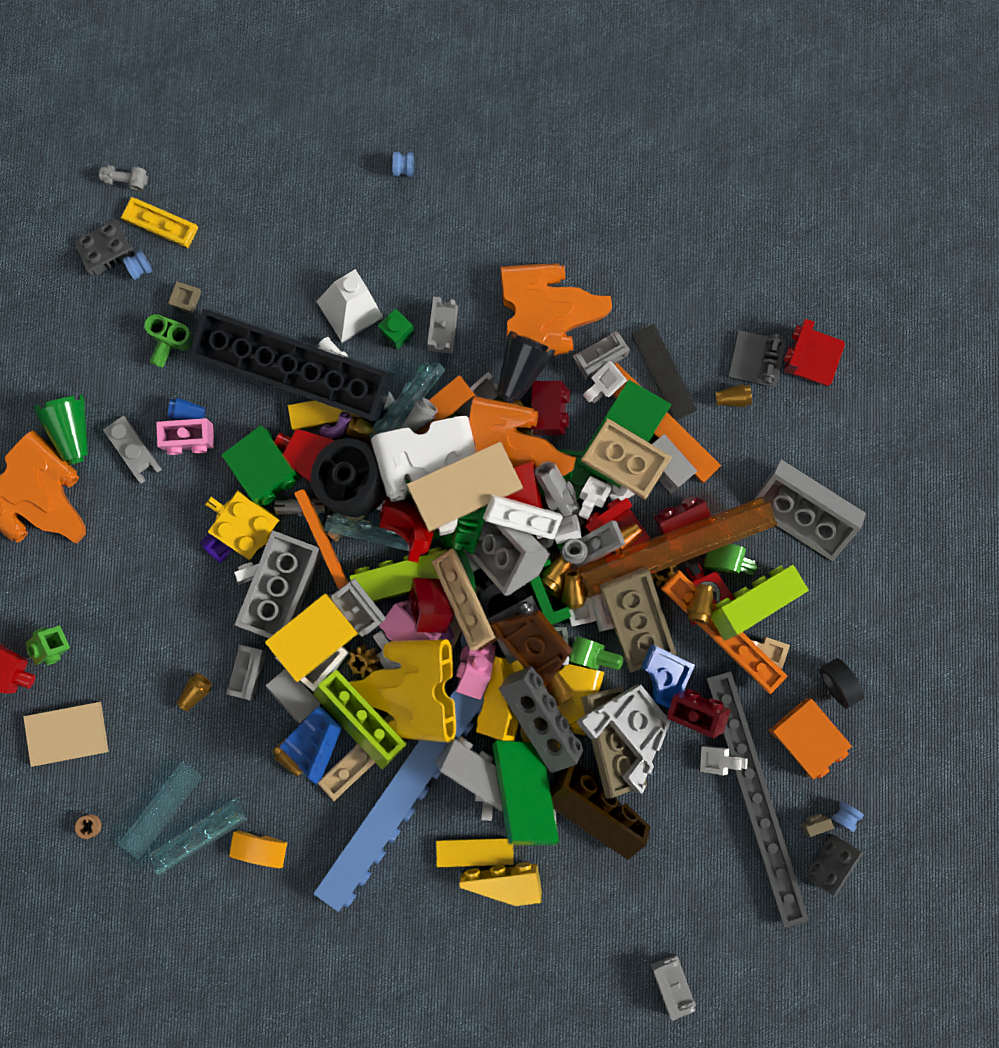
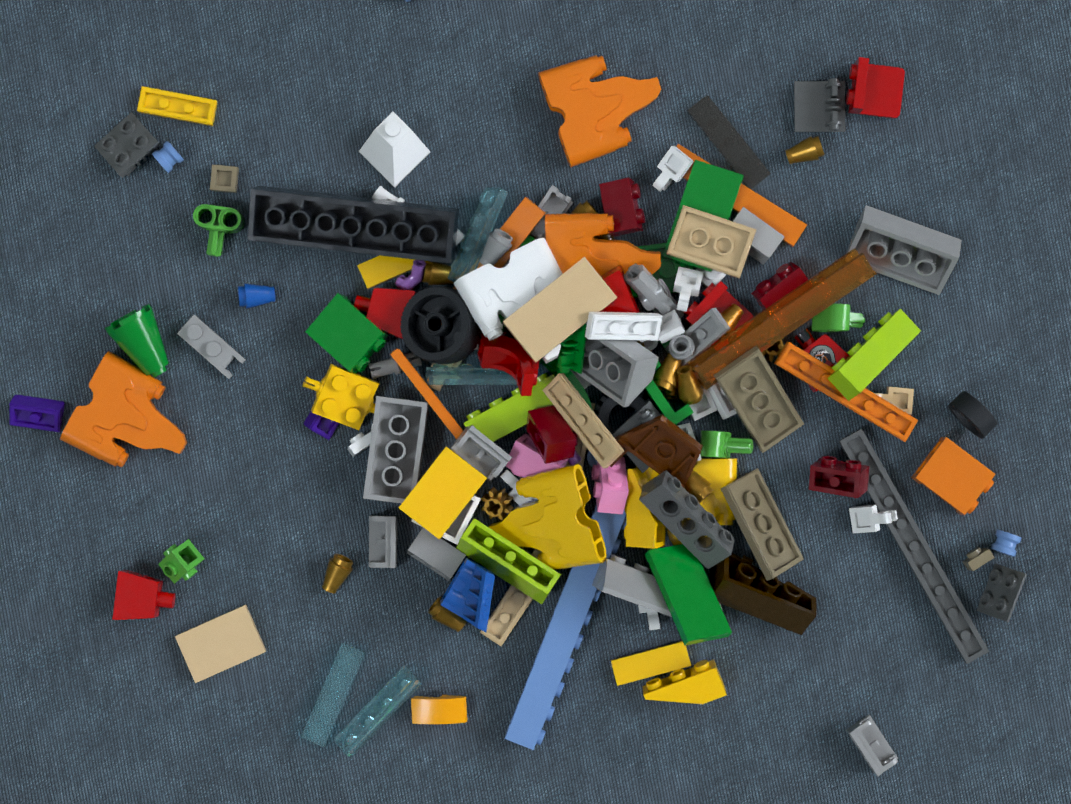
camera: 15 degrees left, 5 degrees up
(80, 825) = (274, 726): medium nougat bush -> none
(137, 178) = (142, 66): light grey bar -> none
(185, 435) = (263, 320): bright pink brick -> none
(396, 328) = (448, 161): green brick -> none
(442, 326) = (494, 147): light grey hinge -> none
(521, 365) = (585, 172): black cone -> none
(596, 356) = (660, 139): light grey hinge -> none
(639, 725) = (783, 502): light grey wing -> none
(667, 673) = (800, 445): tile -> none
(701, 604) = (818, 370): pearl gold cone -> none

